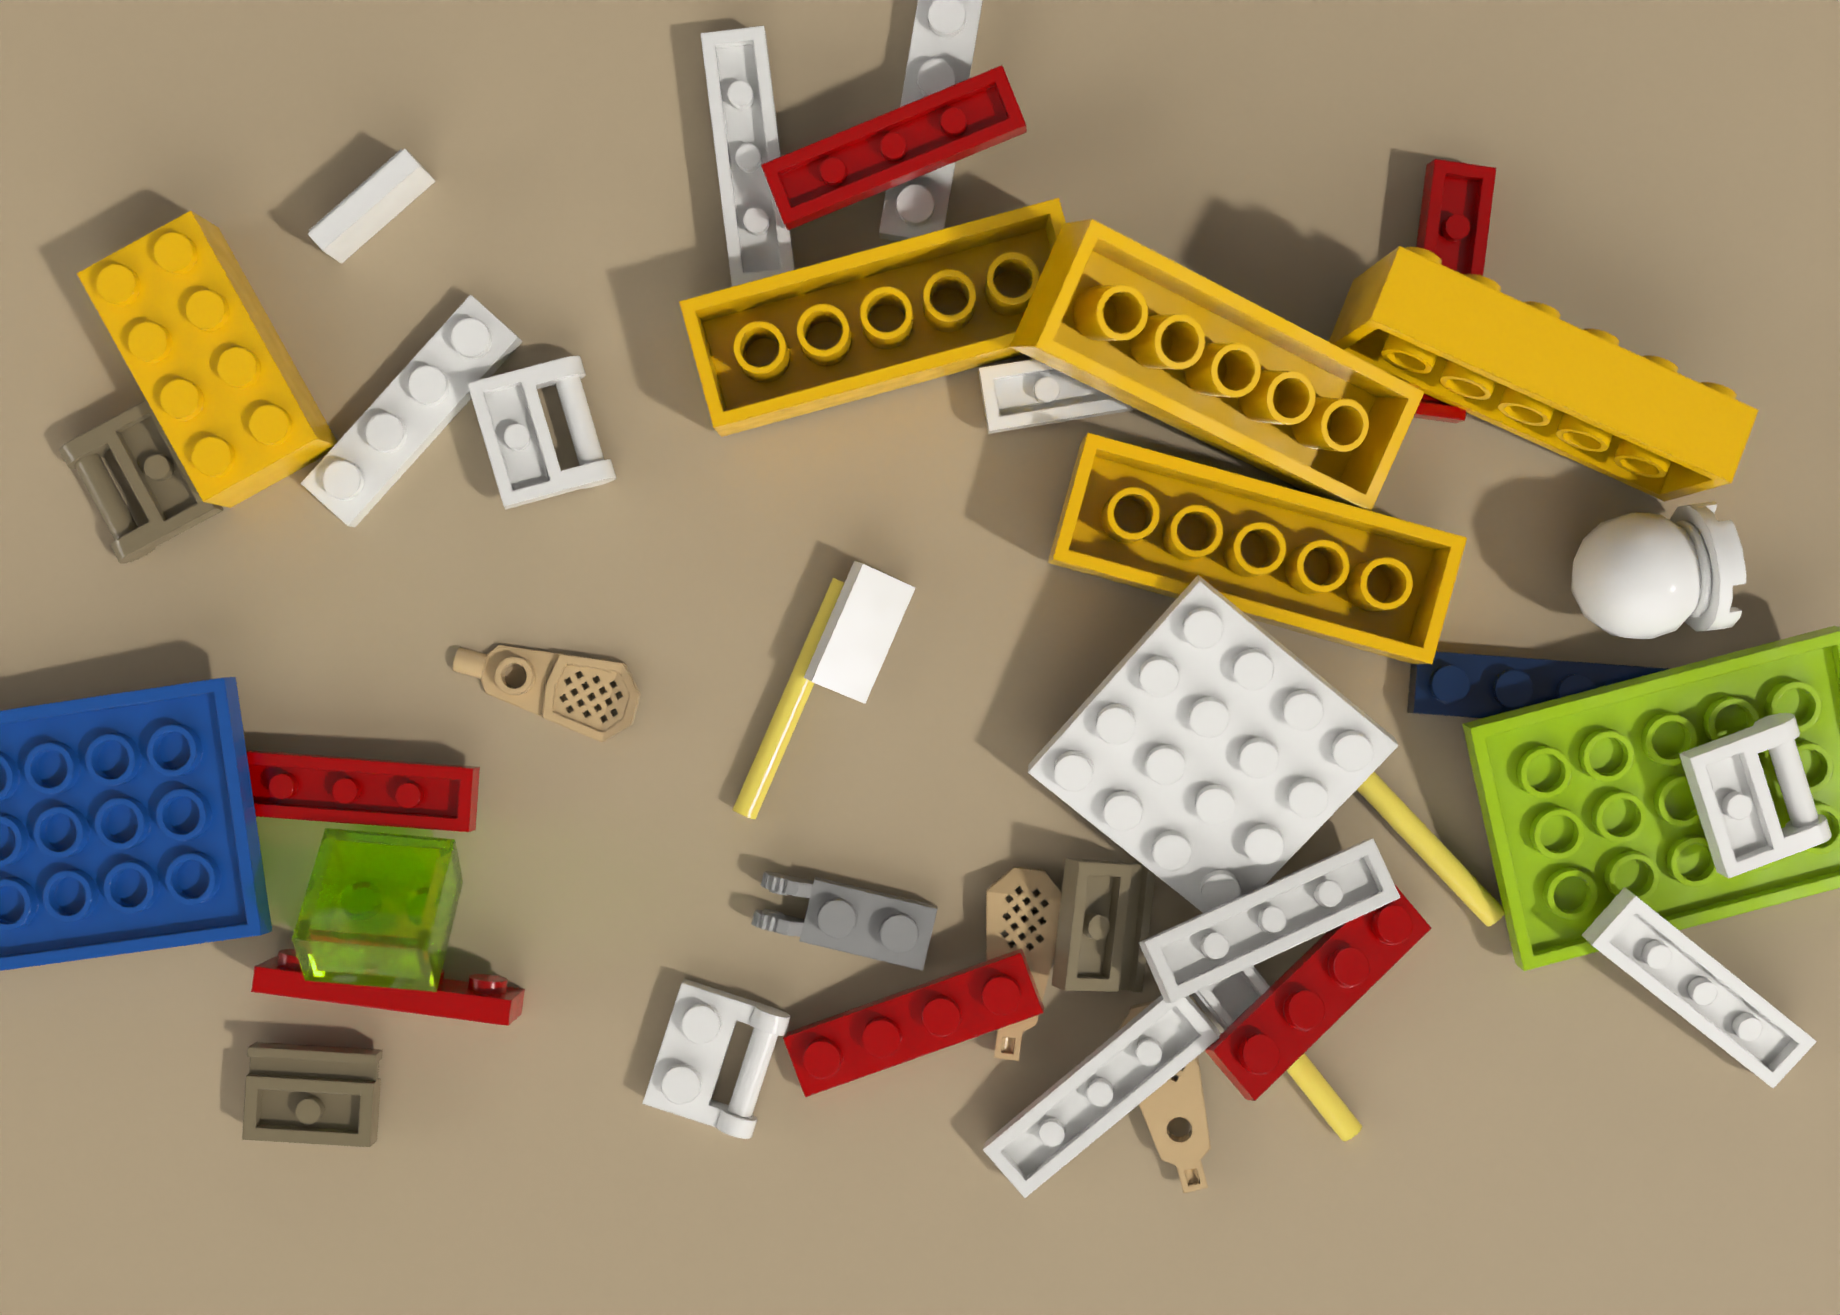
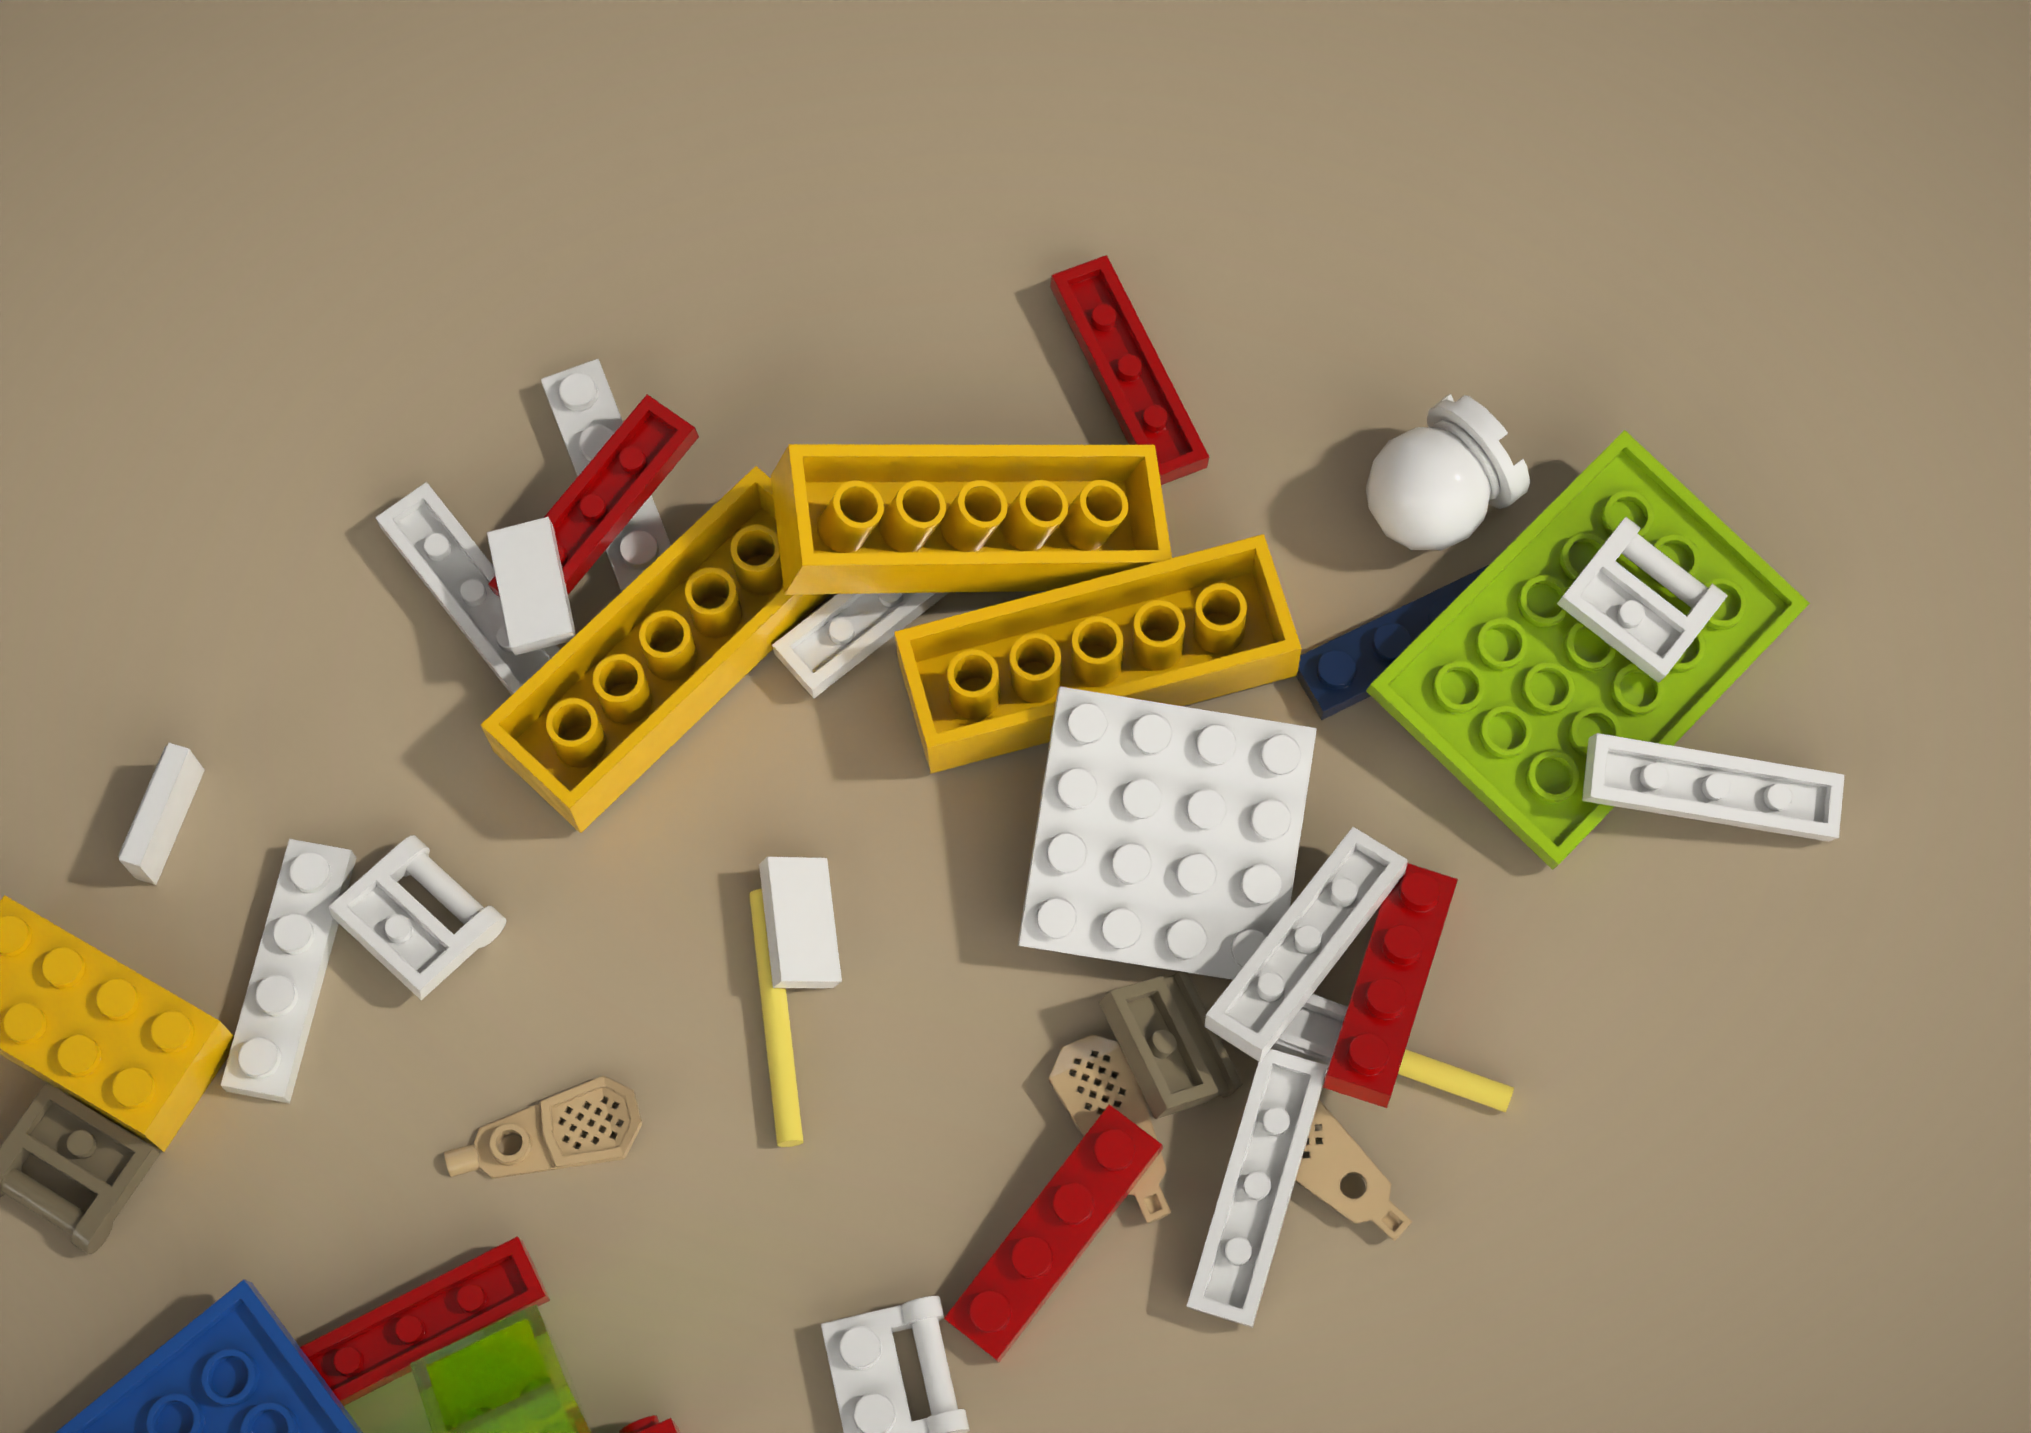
camera: 25 degrees left, 20 degrees down
(796, 193) = (531, 586): none -> white tile
(852, 920) = (943, 1178): light grey hinge -> none
(1431, 850) = (1408, 815): light yellow bar -> none
(1543, 376) = (1245, 378): yellow brick -> none

